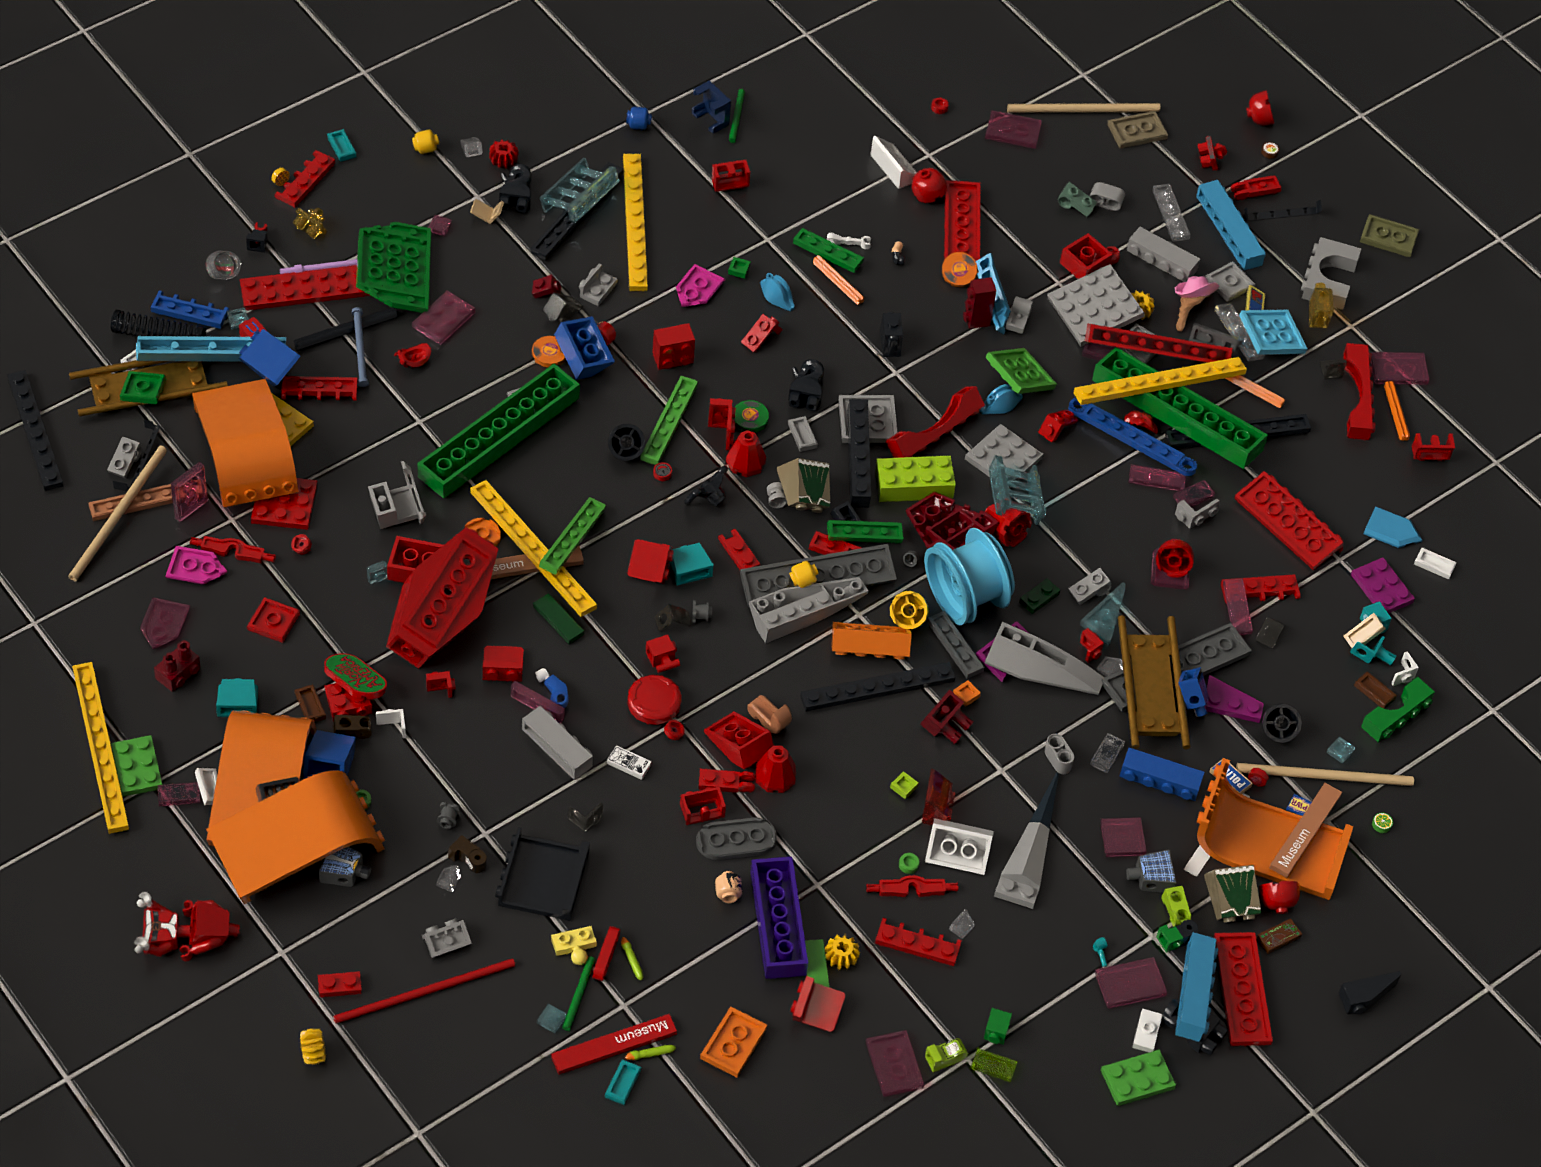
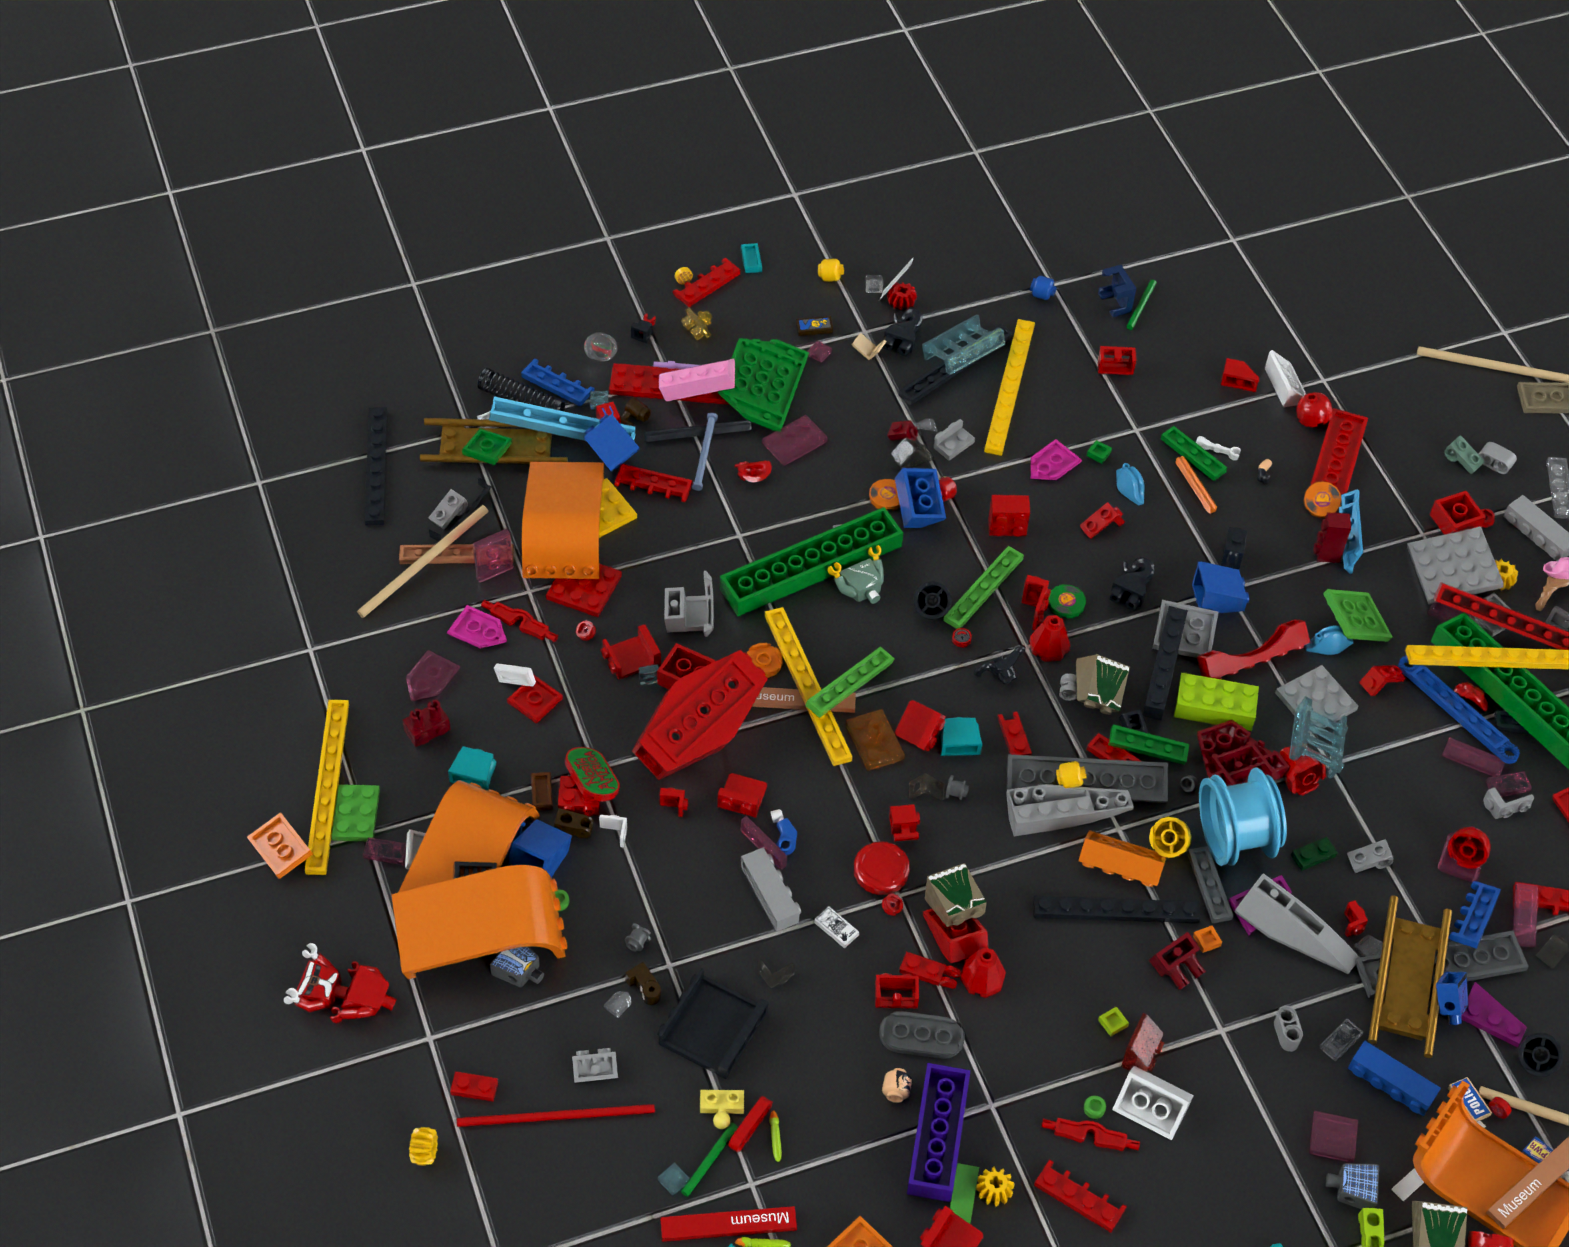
camera: 20 degrees right, 0 degrees up
(75, 812) = (279, 845): none -> orange plate
(248, 601) = (514, 674): none -> white tile
(280, 321) = (636, 410): none -> dark brown piece
(333, 278) = (697, 380): none -> bright pink slope
(354, 556) = (632, 653): none -> red panel
(426, 201) = (814, 326): none -> tile
(496, 137) = (897, 277): none -> white sticker
(552, 437) = (861, 579): none -> sand green torso
(558, 618) = (812, 762): dark green tile -> none
(567, 275) = (926, 424): none -> clear slope
(610, 584) = (875, 739): none -> clear orange plate
(730, 707) = (954, 895): none -> slope
(769, 715) = (995, 915): nougat animal -> none
(802, 434) = (1114, 630): light grey tile -> none
(849, 166) = (1239, 375): none -> red slope
(888, 373) = (1219, 588): none -> blue slope
(939, 105) = (1348, 334): red tile -> none
(962, 924) = (1132, 1189): clear slope -> none
(1013, 129) = (1417, 372): clear pink tile -> none
(1019, 315) = (1372, 558): light grey plate -> none
(1023, 871) = (1215, 1146): light grey plate -> none
(1104, 616) = (1376, 892): clear light blue wing -> none
(1196, 616) = (1477, 915): none -> blue hinge

